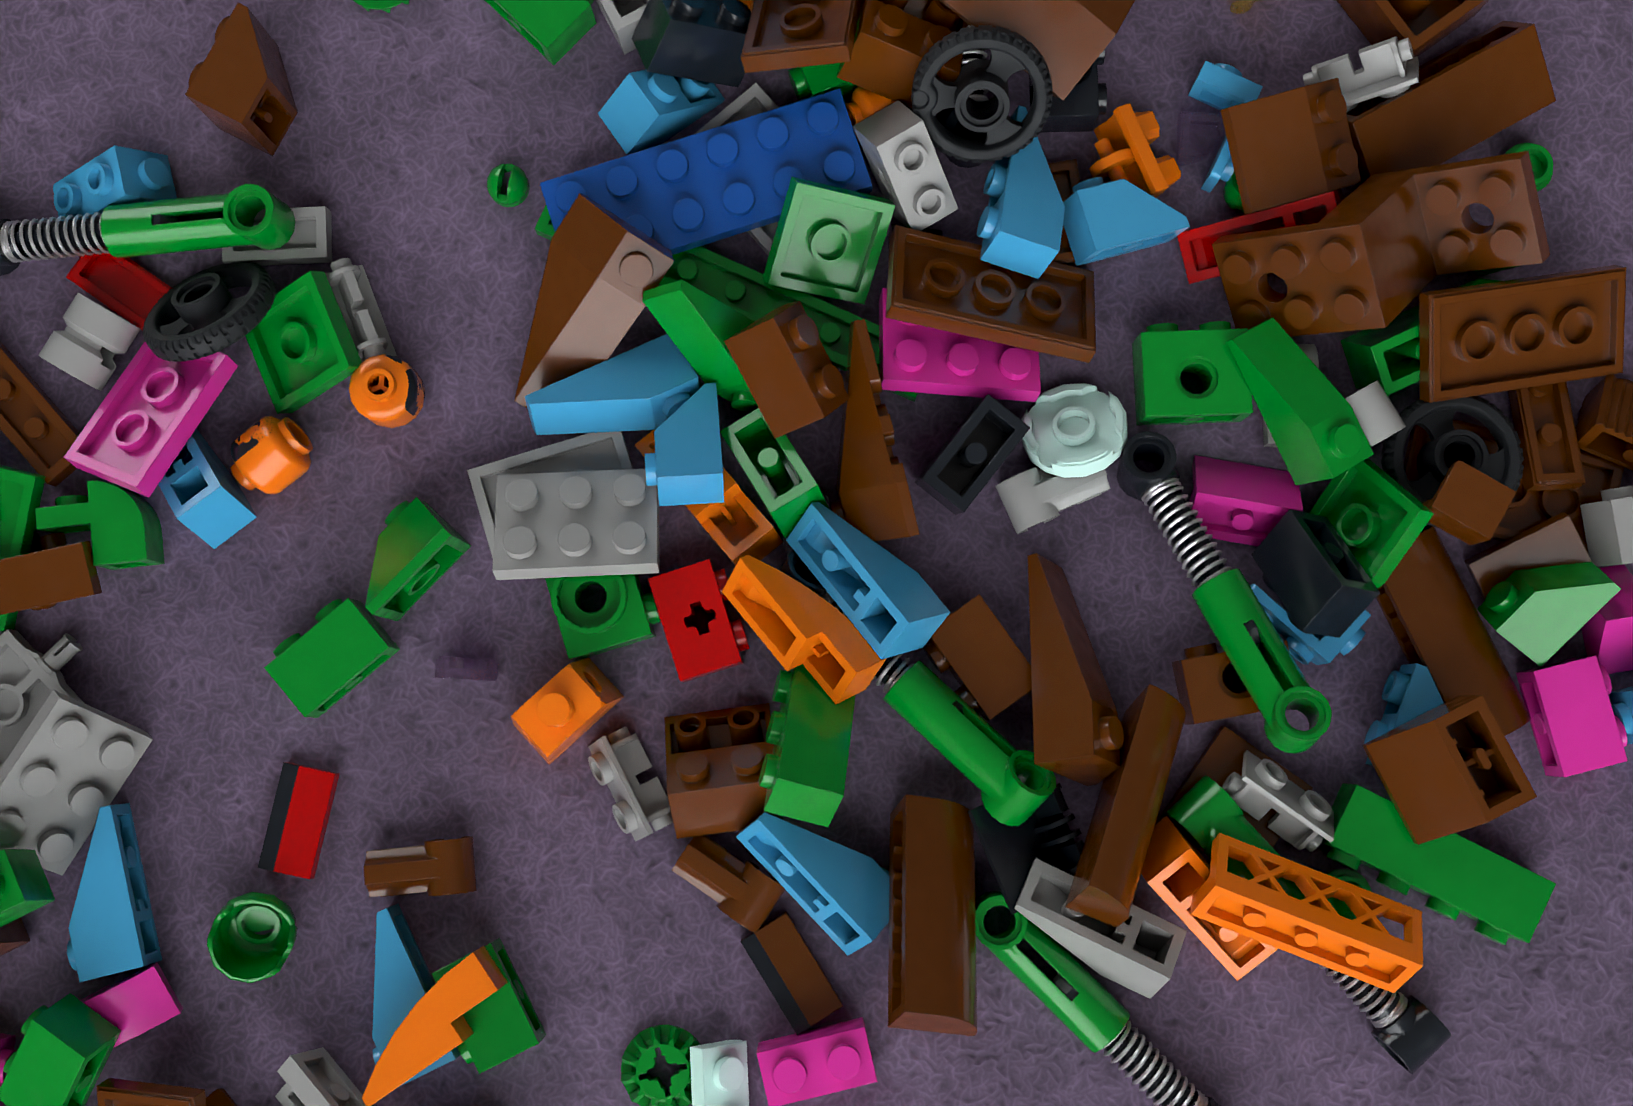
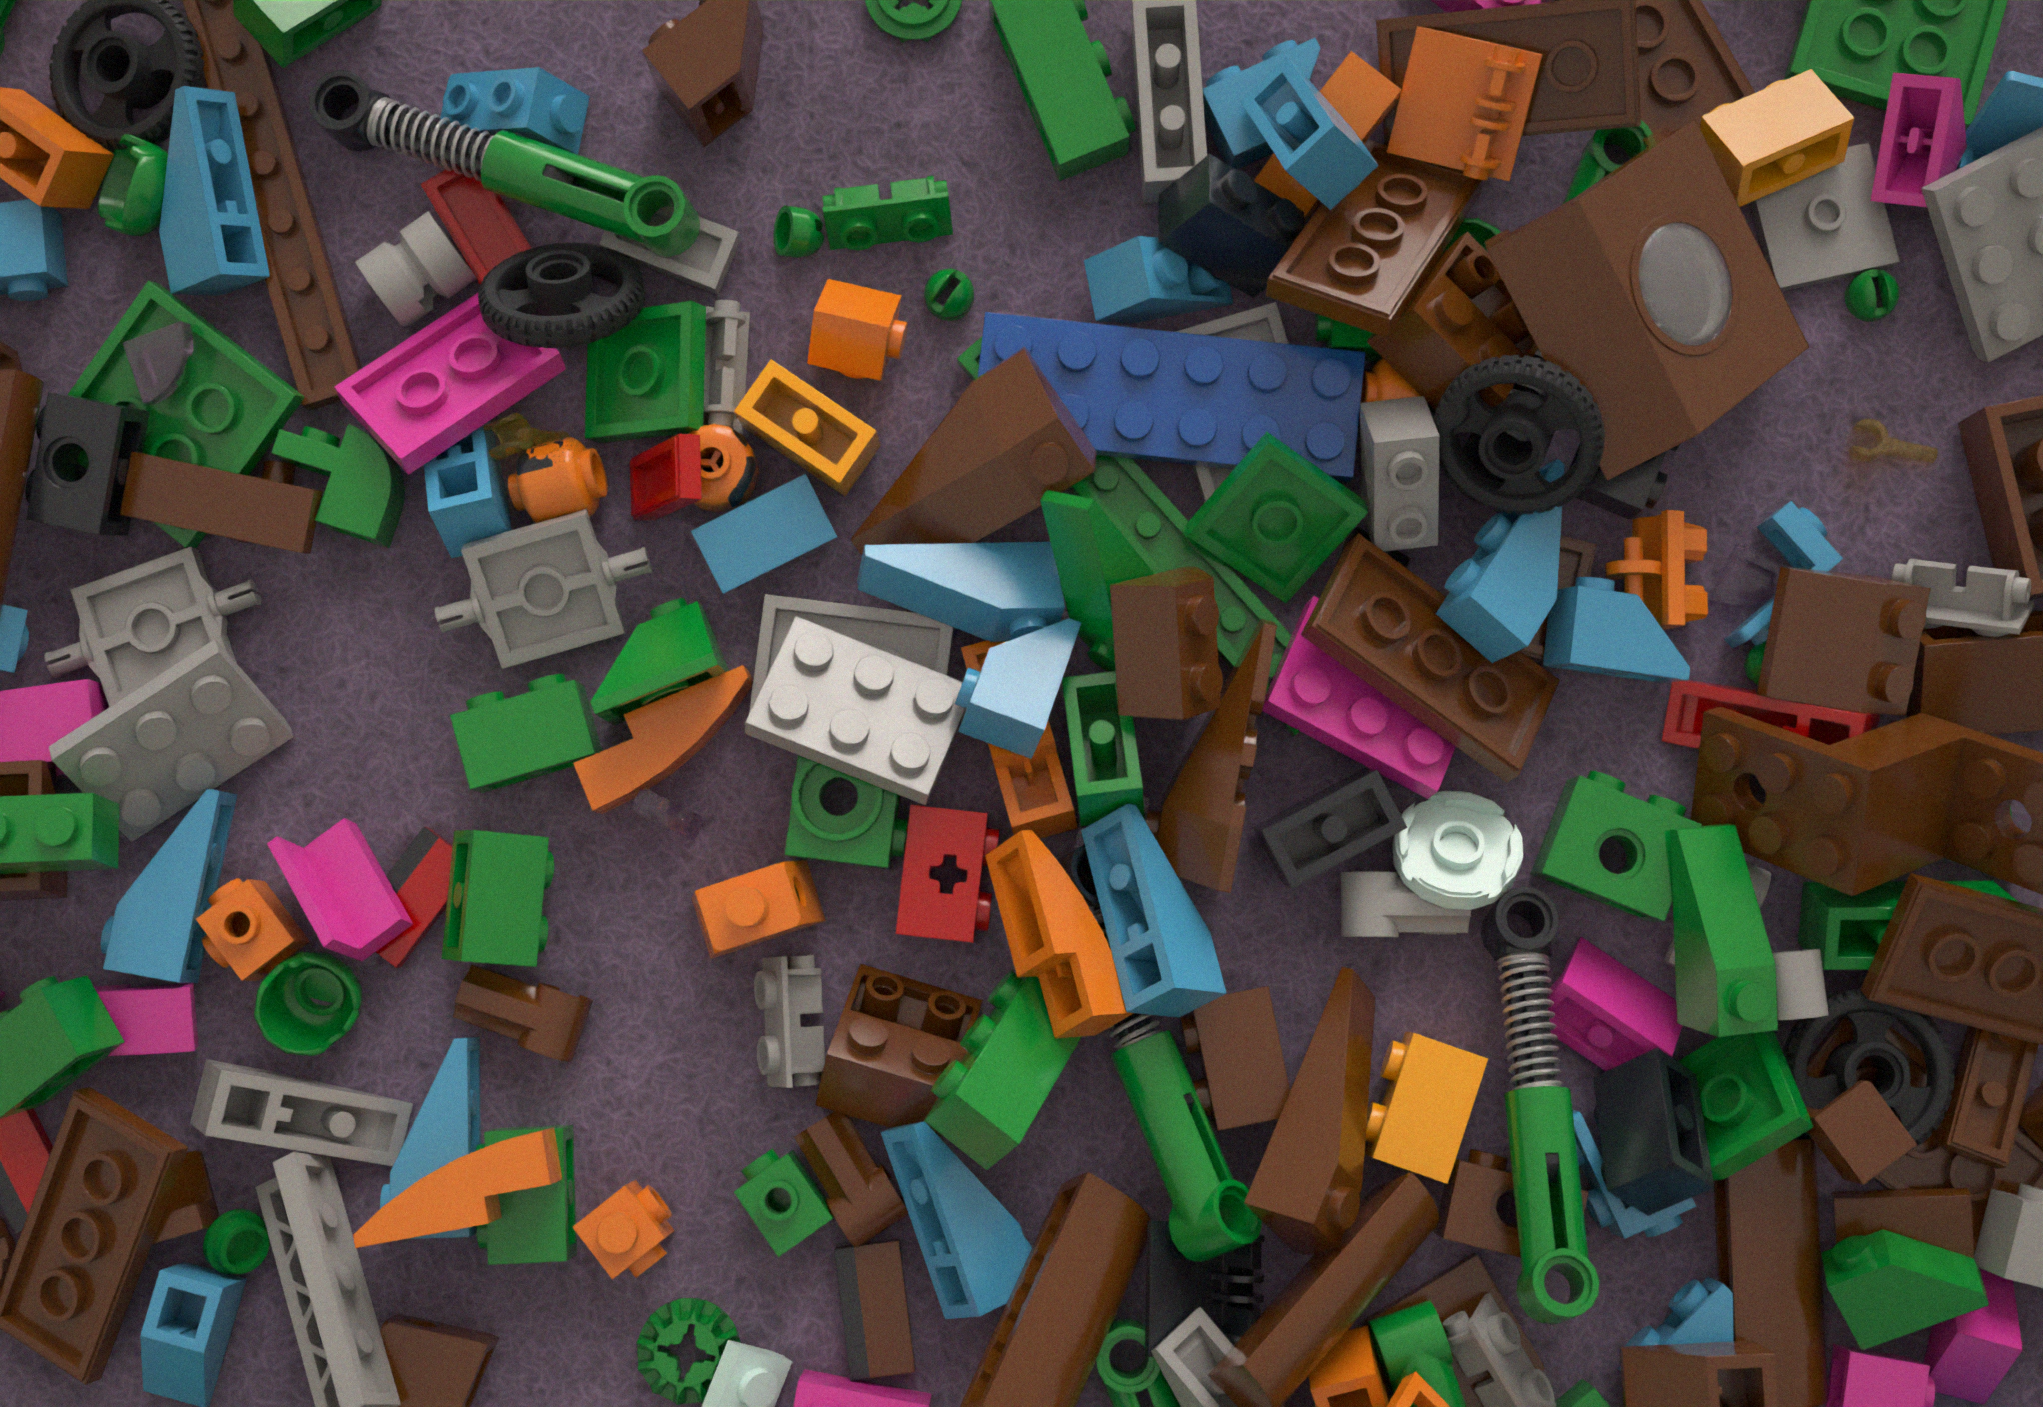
camera: 25 degrees right, 0 degrees up
(182, 900) = (249, 929): none -> orange brick
(222, 433) = (518, 436): none -> clear yellow hand
(241, 839) = (343, 890): none -> dark pink panel
(283, 1025) = (298, 1114): none -> light grey slope
(294, 540) = (543, 589): none -> light grey plate
(351, 414) = (666, 477): none -> red tile
(363, 790) = (497, 898): none -> green brick
(371, 188) = (797, 232): none -> green hinge
(417, 156) = (859, 219): none -> green hinge
(437, 613) = (663, 739): none -> orange slope
(443, 329) = (807, 427): none -> light orange brick
(445, 424) = (764, 533): none -> dark azure hinge
(448, 241) = (856, 330): none -> orange brick
(575, 998) = (627, 1230): none -> orange brick
(684, 921) = (783, 1200): none -> green brick
(1135, 631) = (1423, 1105): none -> light orange brick

